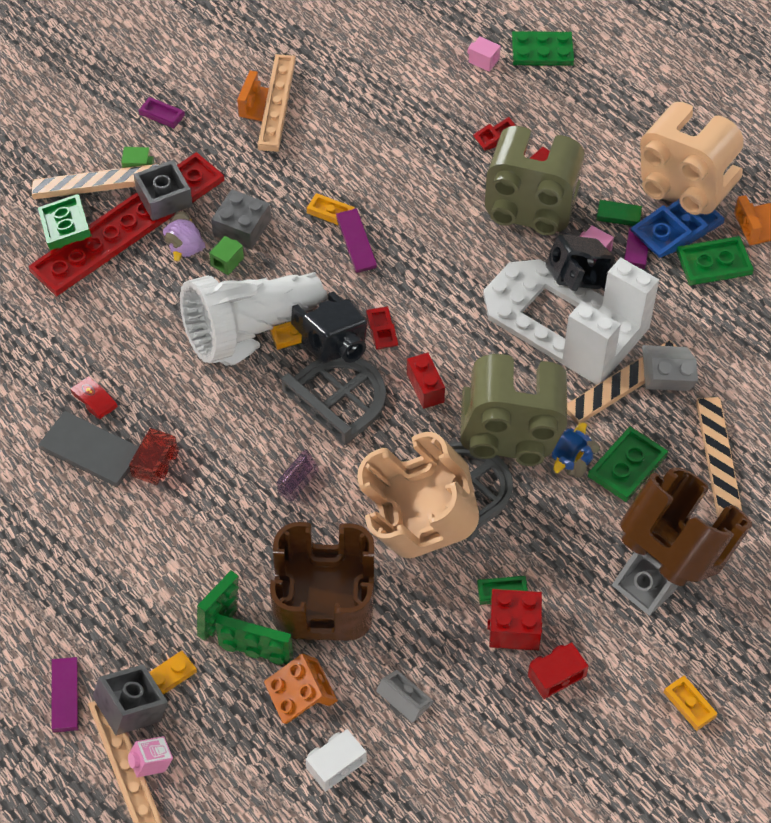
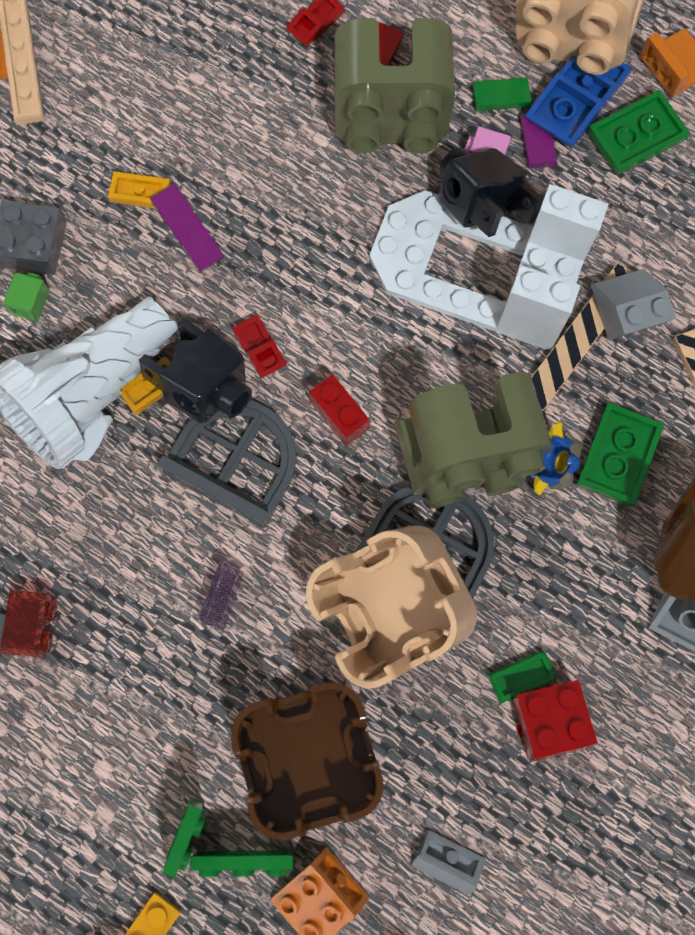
camera: 20 degrees left, 20 degrees up
(557, 670) = (623, 773): red brick -> none

